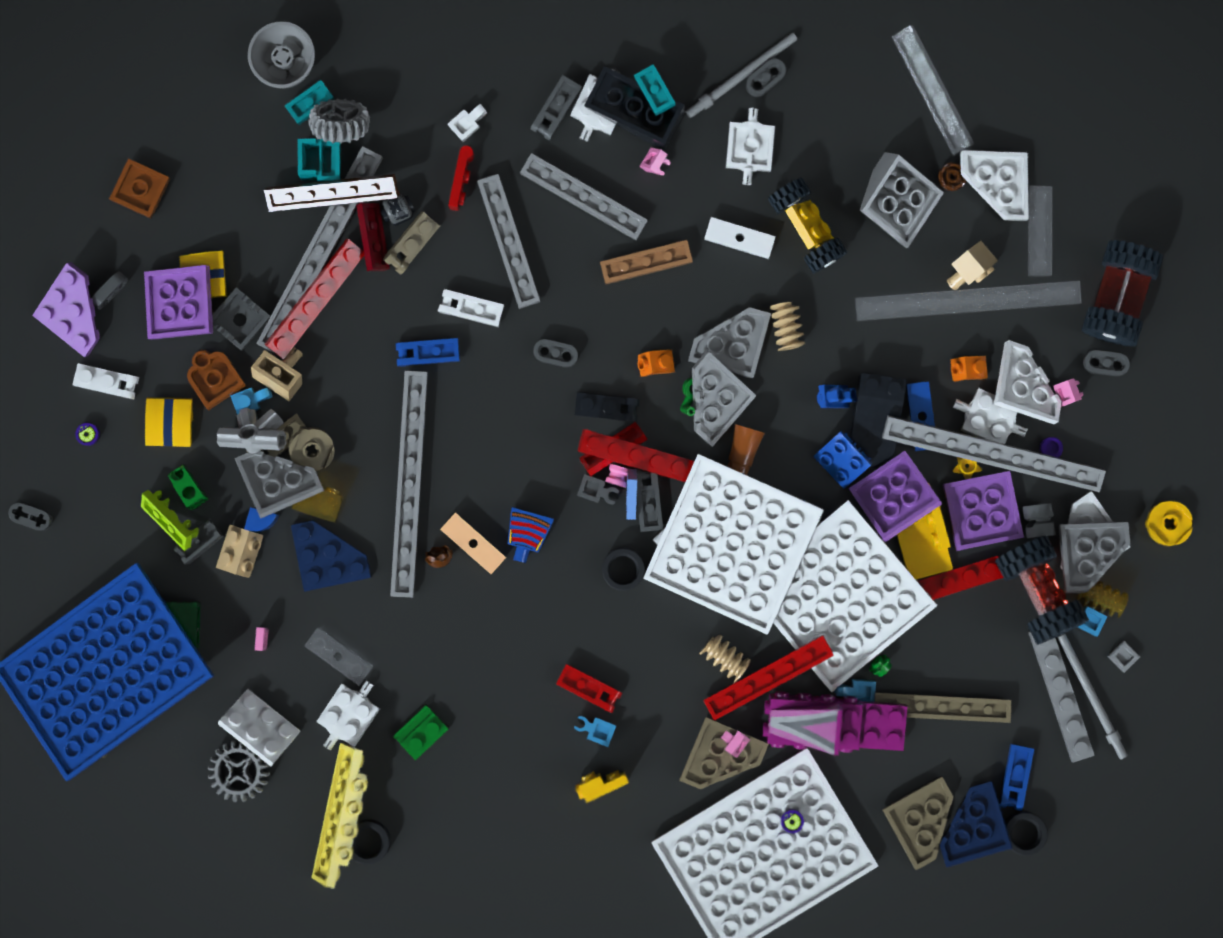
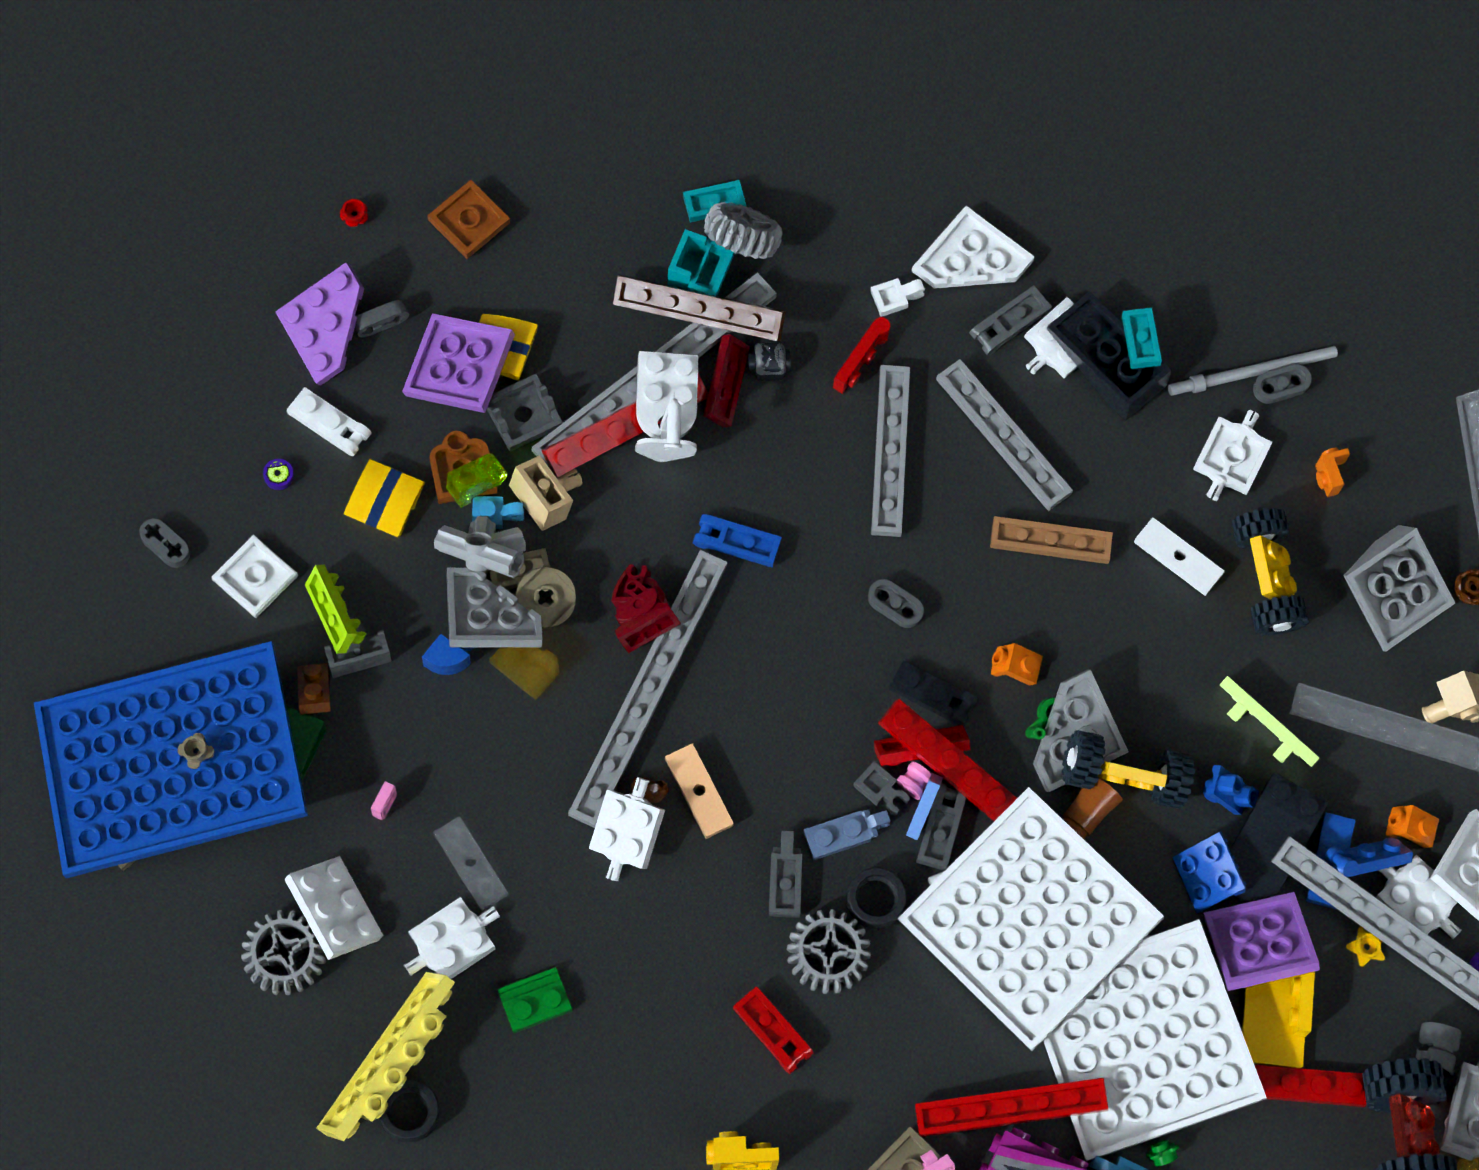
camera: 20 degrees right, 15 degrees down
(51, 213) = (354, 205): none -> red plate
(103, 514) = (254, 576): none -> white tile
(111, 663) = (189, 744): none -> dark tan plate
(179, 581) = (314, 688): none -> reddish brown plate
(187, 487) = (373, 584): green leg -> none
(227, 385) = (475, 478): none -> clear neon green leg
(239, 551) = (403, 685): tan bracket -> none
(279, 43) = (705, 119): light grey piece -> none
(326, 558) = (507, 737): dark blue plate -> none
(335, 267) = (666, 393): none -> white plate
(381, 433) = (641, 611): none -> dark red piece
(411, 242) = (771, 405): dark tan plate -> none
(435, 592) = (627, 829): none -> white plate
(471, 308) = (813, 510): white plate -> none
(509, 68) = (972, 254): none -> white plate
(527, 532) = (773, 804): blue torso -> none
(556, 580) = (785, 878): none -> dark grey hinge
(583, 531) = (844, 832): none -> sand blue hinge
(599, 731) = (764, 1089): dark azure plate -> none
(600, 602) = (842, 951): none -> light grey gear
(654, 160) = (1106, 426): bright pink tile -> none
(725, 657) = (964, 1059): tan piece -> none
(735, 342) = (1127, 677): light grey plate -> none
(787, 326) = (1198, 682): tan piece -> none
(791, 410) = (1167, 783): none -> black plate
(822, 133) = (1327, 473): none -> orange bracket
(841, 332) = (1247, 703): none -> yellowish green hinge
(947, 406) = (1369, 857): none -> blue plate
(983, 510) = (1367, 1009): medium lavender plate -> none

